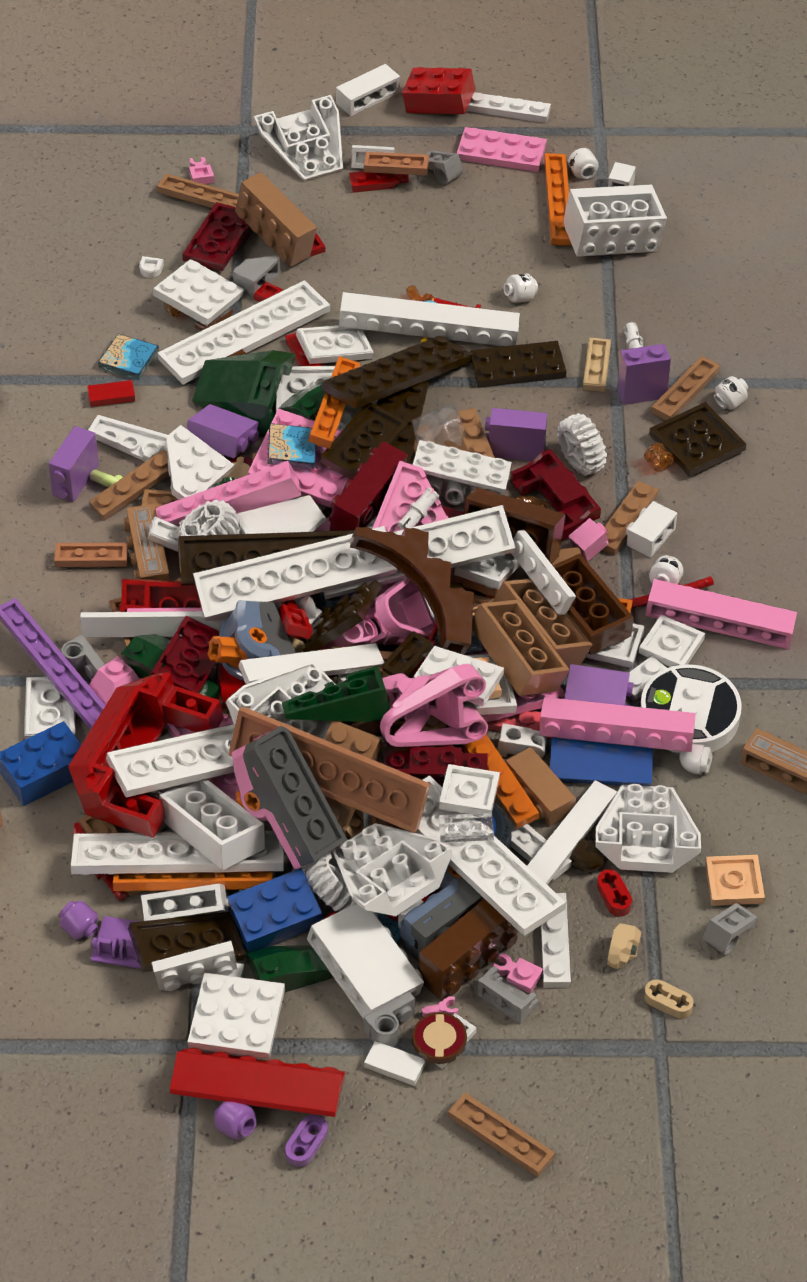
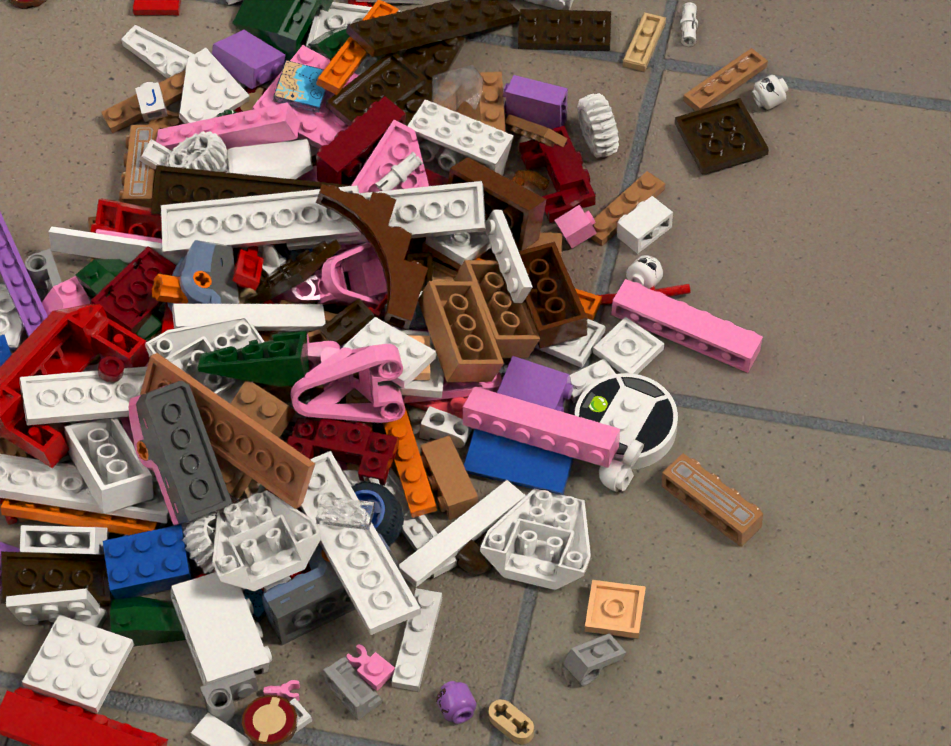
camera: 15 degrees right, 5 degrees up
(73, 464) = (94, 72): medium lavender brick -> none
(91, 555) = (86, 167): nougat plate -> none
(104, 478) = (121, 90): yellowish green arm -> none
(141, 482) = (151, 101): none -> white brick
(191, 732) = (111, 369): none -> dark red tile
(465, 949) = (317, 636): reddish brown brick -> none
(468, 790) = (361, 474): white plate -> none
(529, 456) = (535, 132): none -> medium nougat plate
(609, 895) = (496, 600): red beam -> none
(612, 989) = (456, 702): none -> medium lavender head
(623, 945) = (480, 658): tan rock -> none
(643, 373) = (682, 59): medium lavender brick -> none
(658, 457) = (675, 149): clear orange wheel -> none
(711, 734) = (632, 453): none -> white tile

